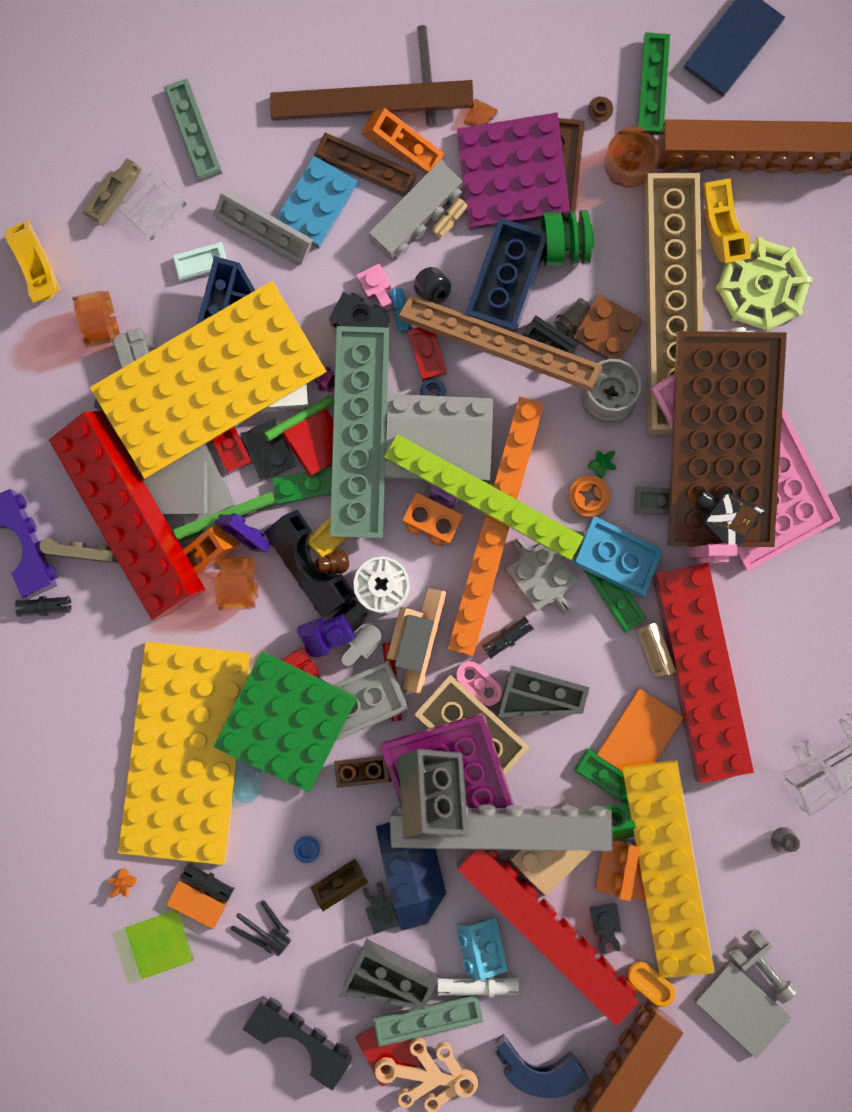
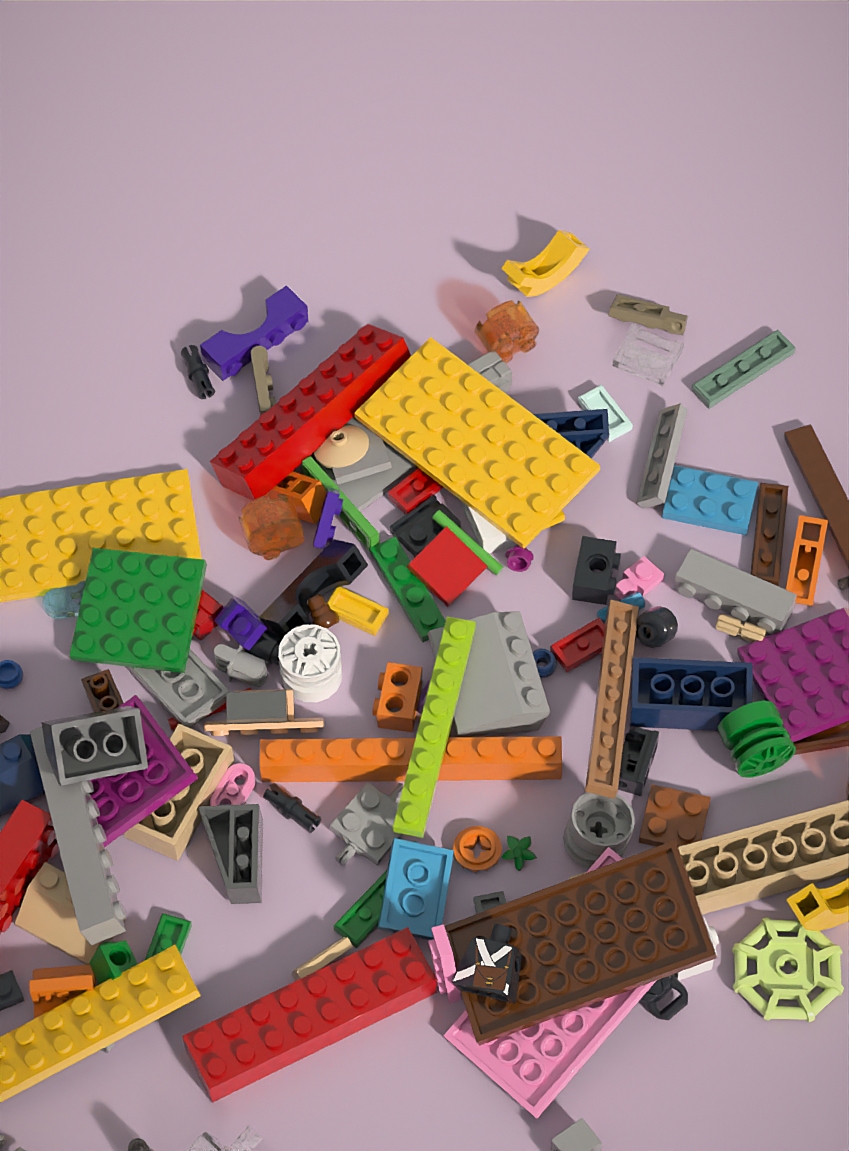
camera: 75 degrees right, 25 degrees down
(180, 497) = (343, 447): none -> tan dish
(359, 432) = (495, 585): sand green plate -> none
(572, 317) = (674, 776): clear smoke cone -> none
(640, 732) = (225, 972): orange tile -> none

